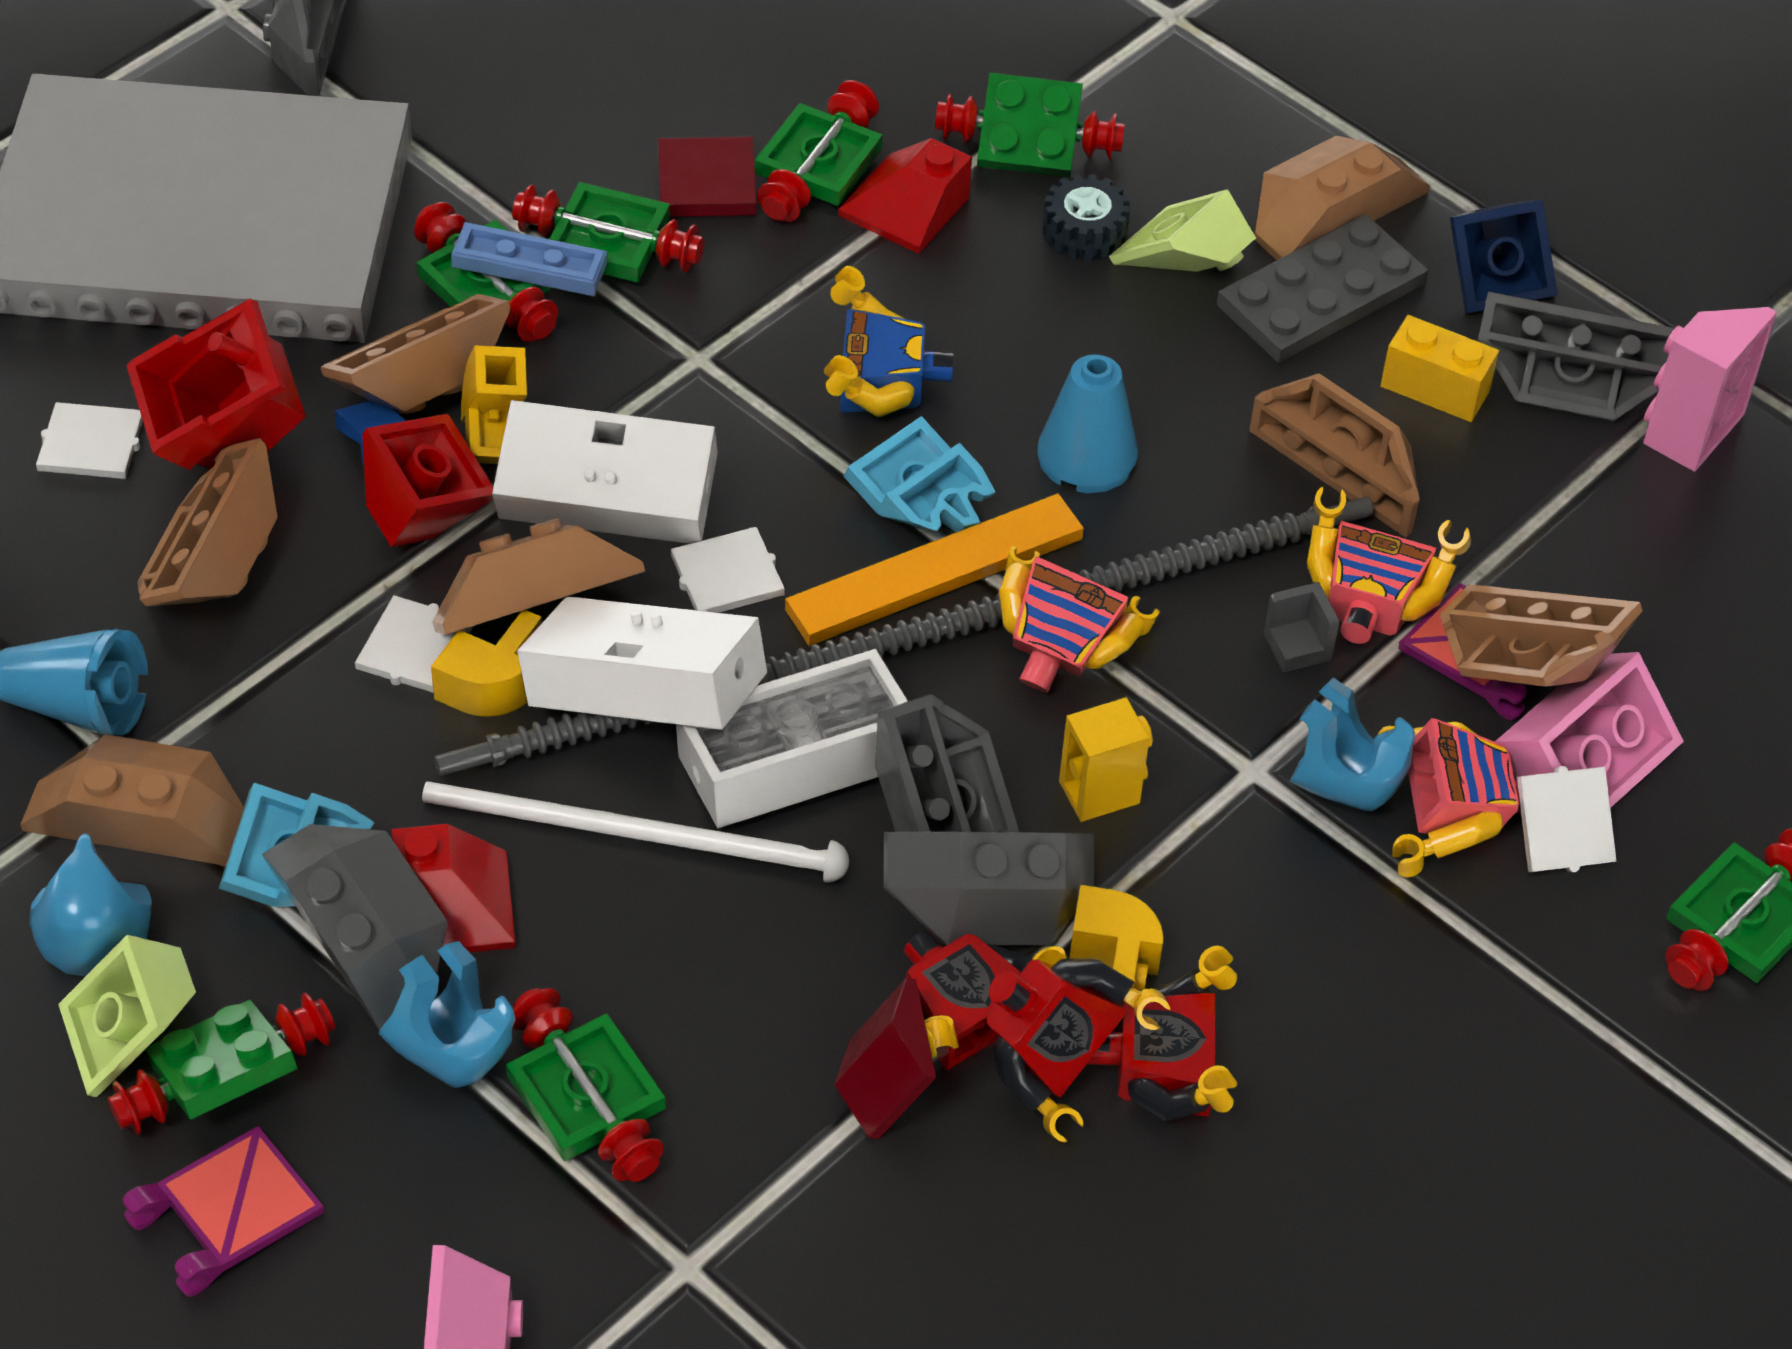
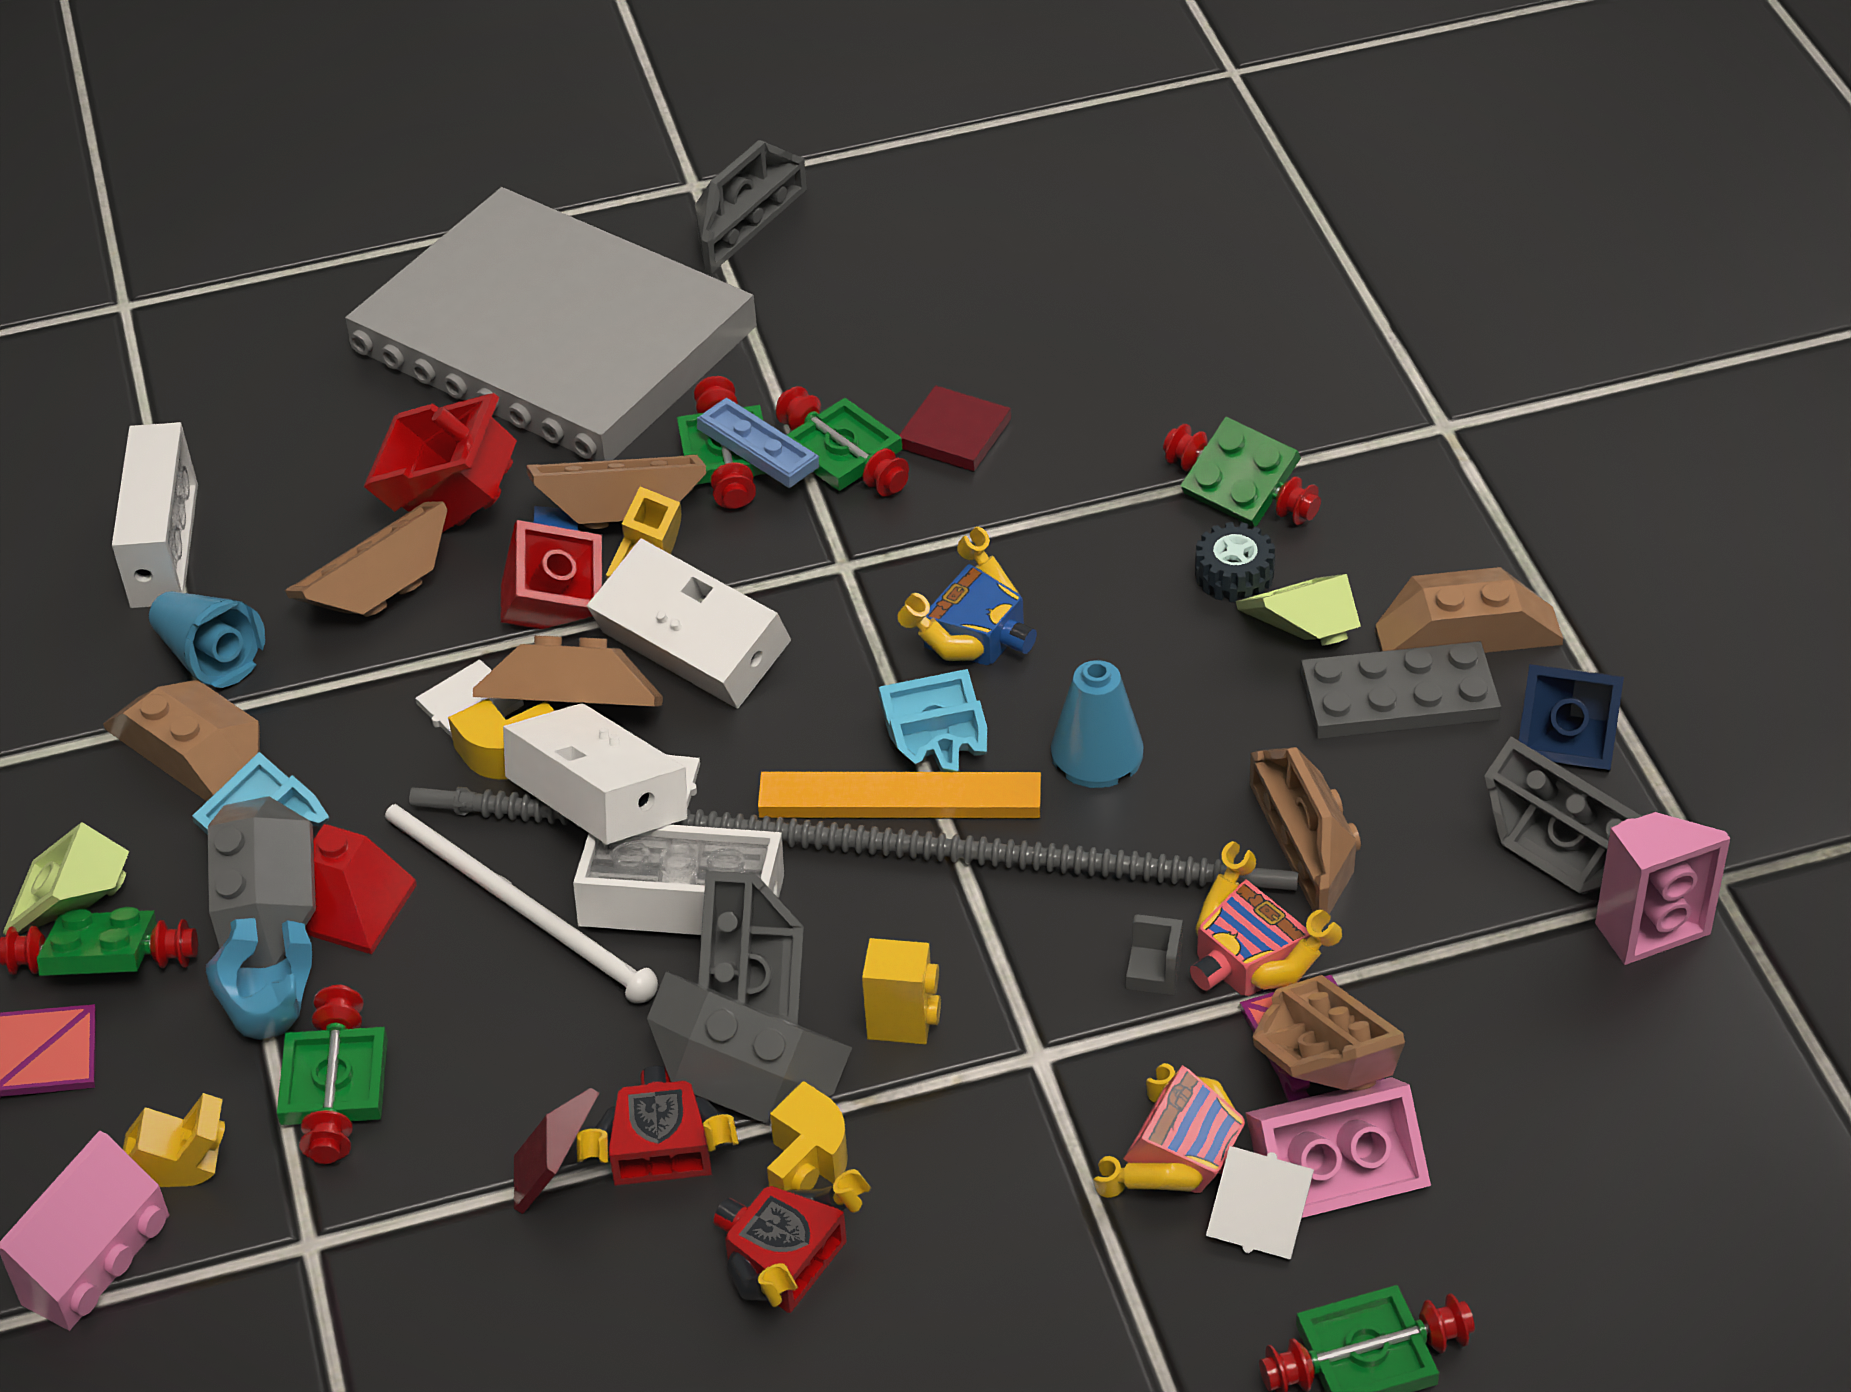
camera: 35 degrees right, 5 degrees down
(86, 912) = (77, 793): dark azure piece -> none
(90, 440) = (347, 468): white piece -> none
(491, 1227) = (177, 1149): none -> yellow brick
(727, 571) = (740, 736): white piece -> none
(819, 152) = (1053, 438): green plate -> none
(912, 194) = (1105, 498): red slope -> none
(1054, 1023) = (689, 1178): torso -> none
(1065, 619) = (960, 872): torso -> none
(1344, 760) = (1115, 1082): dark azure piece -> none
(1439, 368) = (1442, 790): yellow brick -> none

